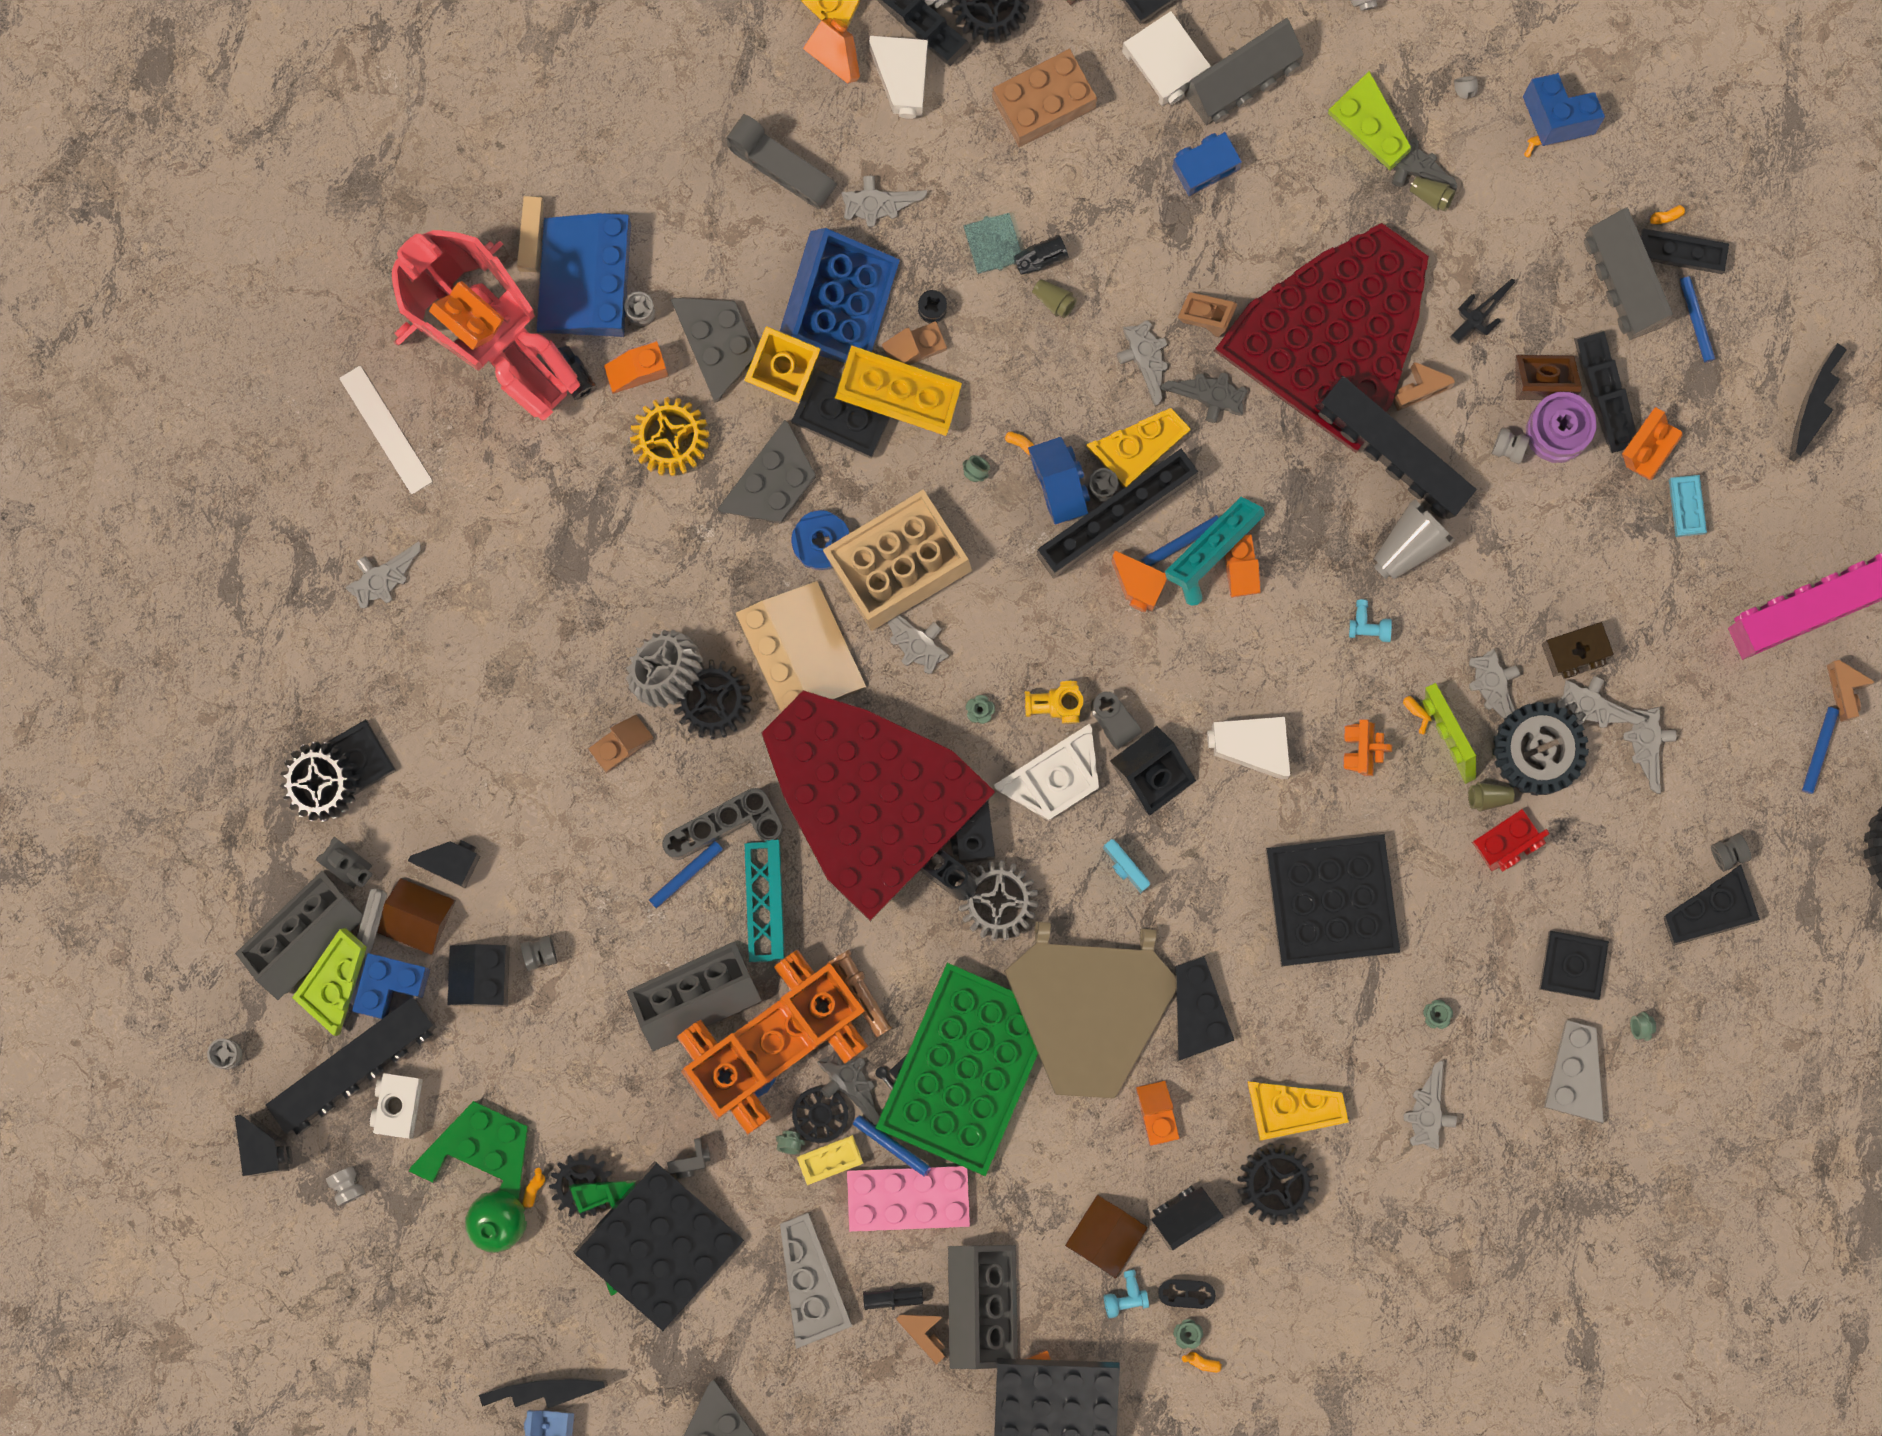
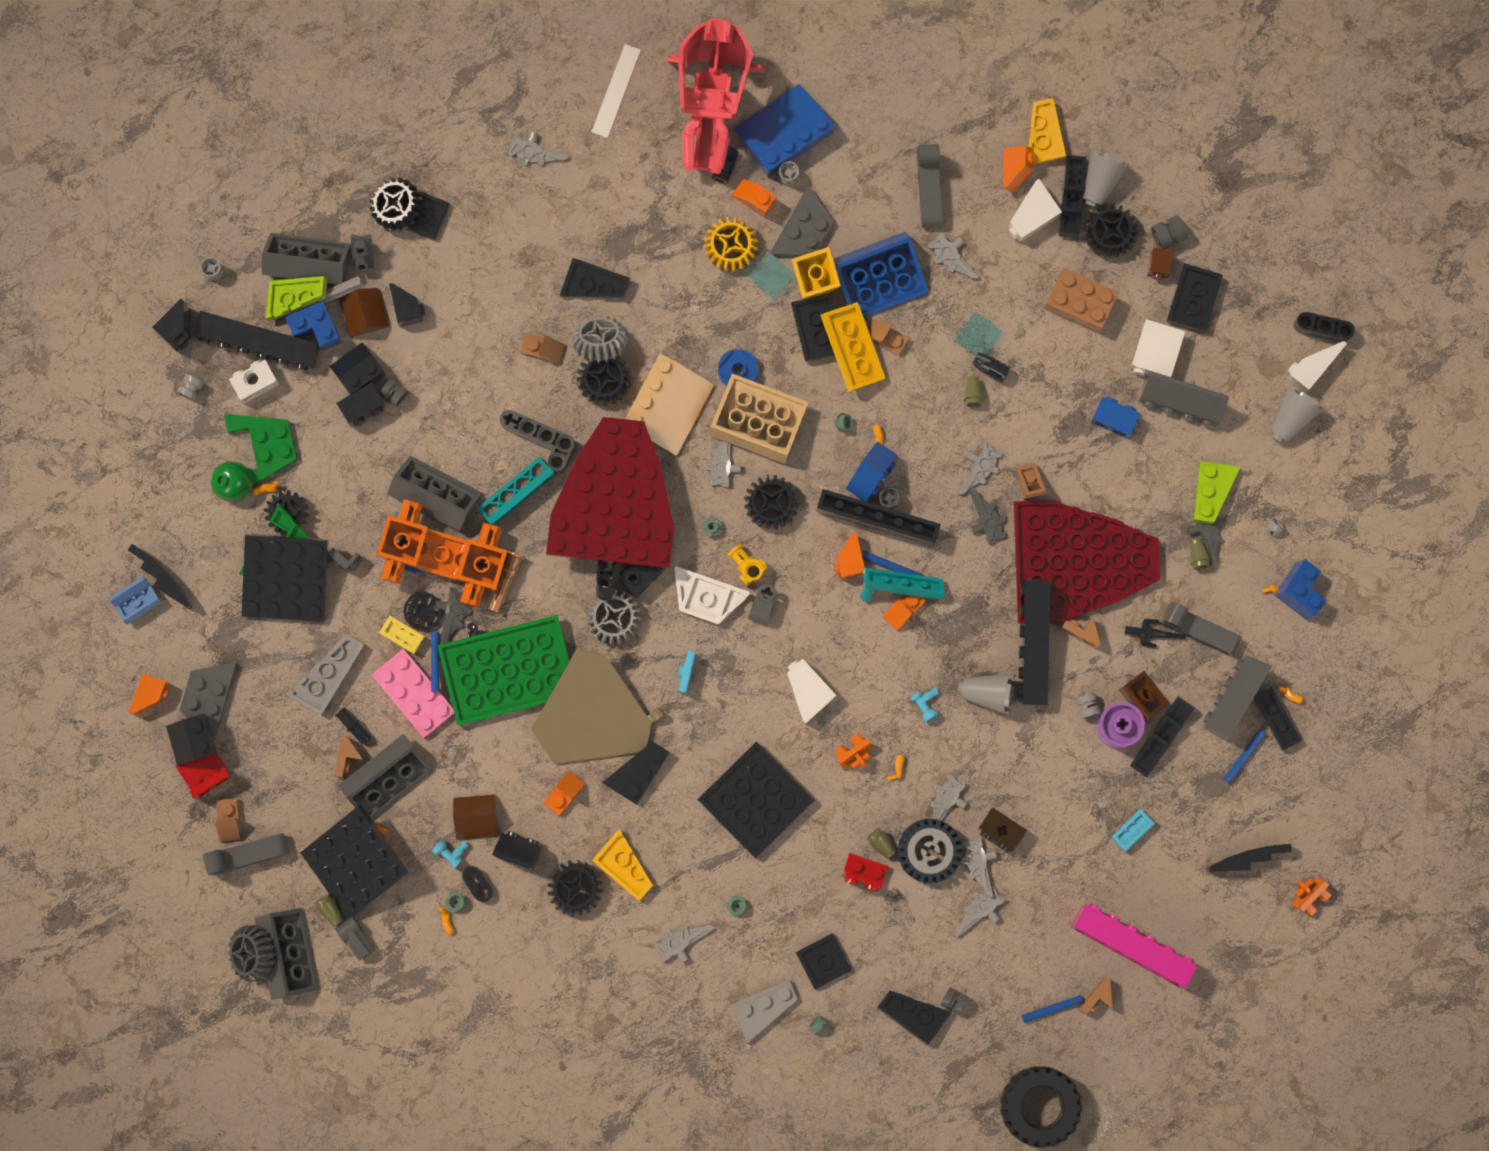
camera: 50 degrees right, 0 degrees up
(467, 316) = (704, 82): orange bracket -> none
(525, 1002) = (361, 405): none -> black brick
(530, 234) = (784, 83): tan piece -> none
(588, 625) = (593, 281): none -> black wing
(686, 874) = (497, 438): blue bar -> none
(740, 420) = (770, 275): none -> clear light blue piece
(772, 480) = (750, 318): dark grey wing -> none
(789, 1142) = (394, 606): sand green plate -> none
(934, 311) = (914, 333): black wheel -> none
(991, 620) = (784, 489): none -> black gear
(1139, 446) = (926, 502): yellow wing -> none
(1153, 770) = (751, 646): black slope -> none
(1451, 732) = (899, 790): lime wing -> none
(1496, 268) = (1203, 631): none -> dark grey beam
(1651, 445) = (1150, 783): orange bracket -> none

